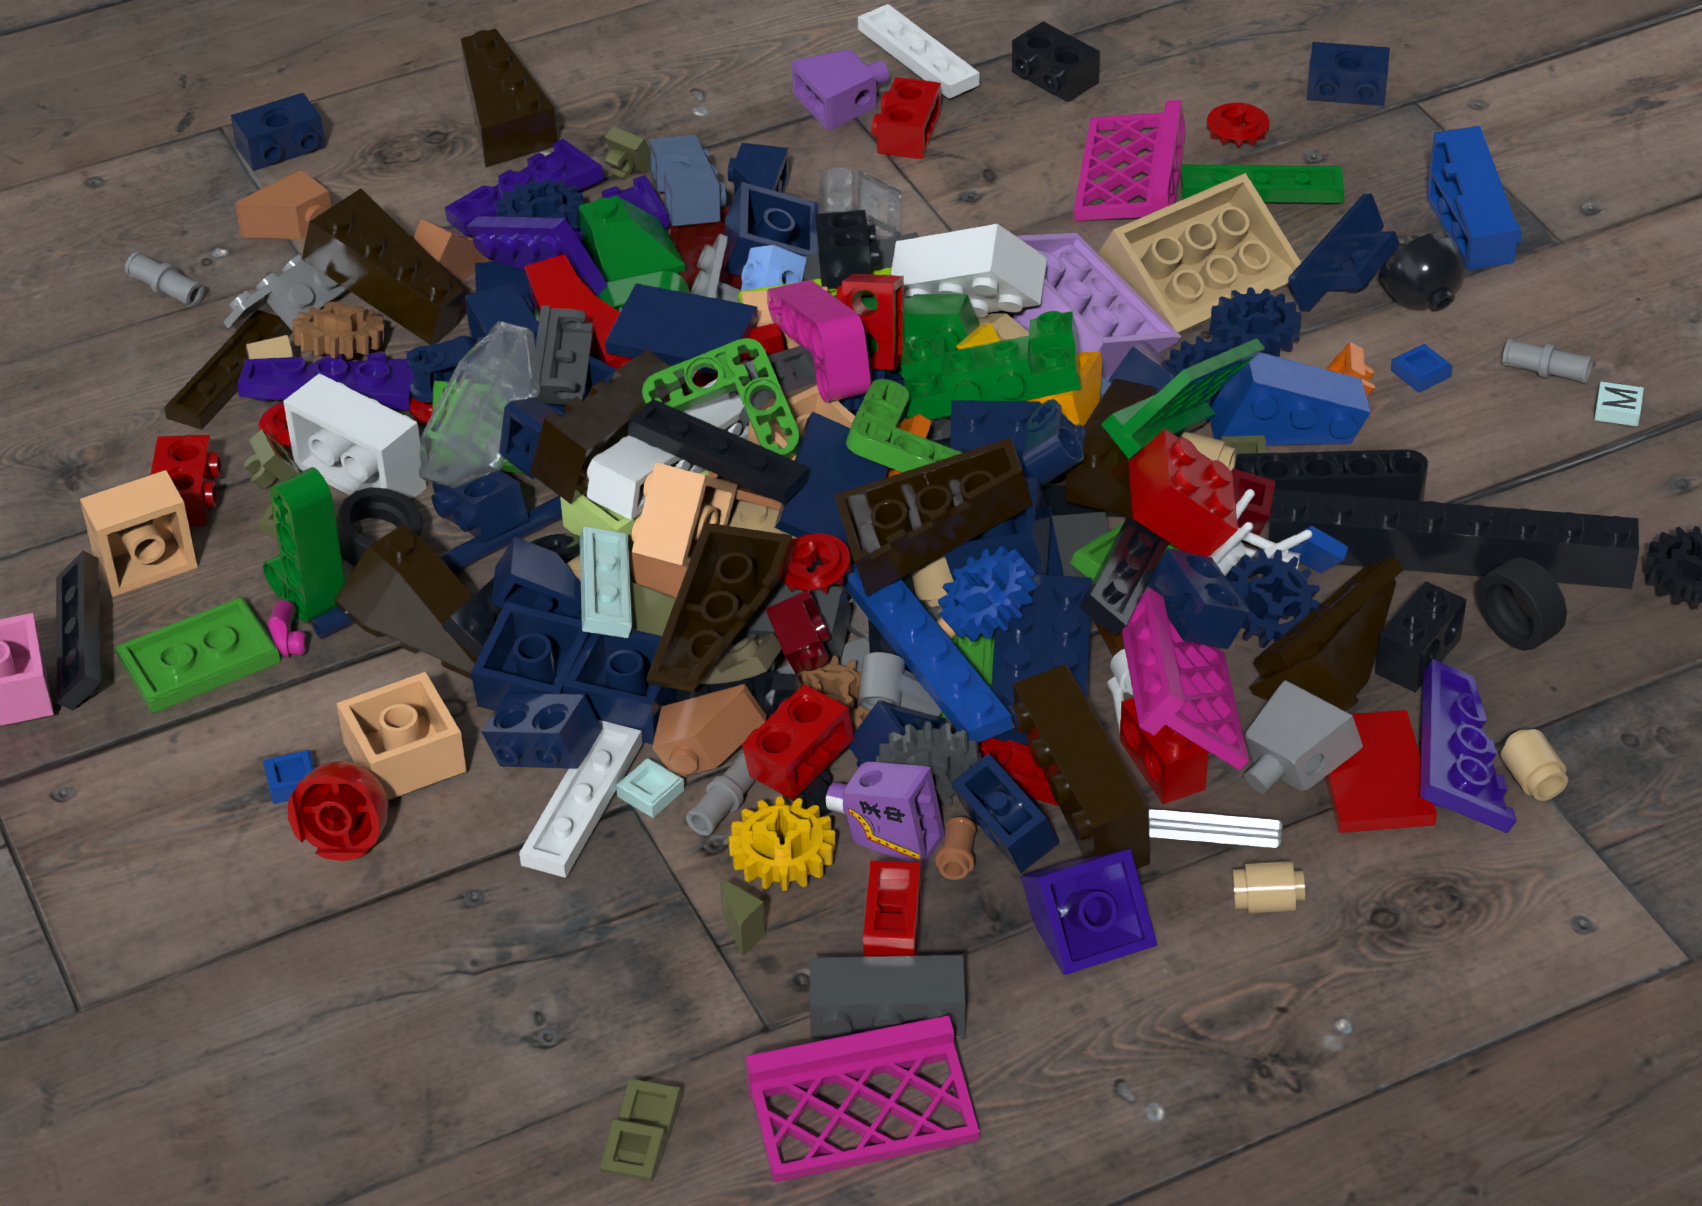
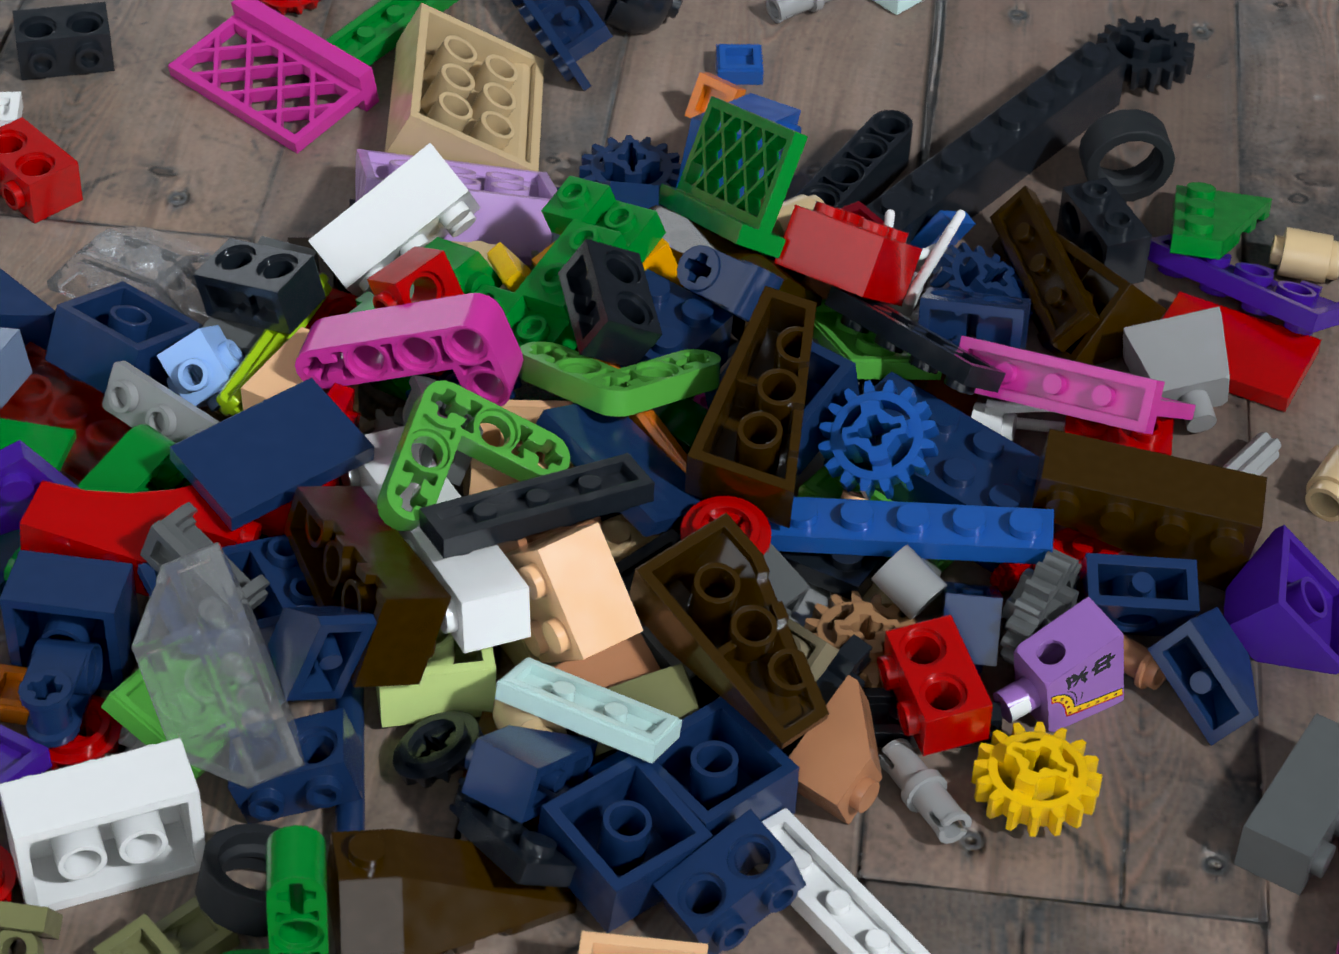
camera: 60 degrees left, 0 degrees up
(650, 787) = (858, 845): light aqua tile -> none
(742, 915) = (1118, 860): olive slope -> none
(800, 631) = (810, 595): dark red brick -> none
(892, 909) = (1220, 742): red brick -> none
(942, 384) = (609, 303): none -> black brick
(966, 880) = (1209, 674): none -> dark blue slope
(1259, 317) = (590, 115): dark blue gear -> none
(1510, 684) = (1211, 221): none -> green wing

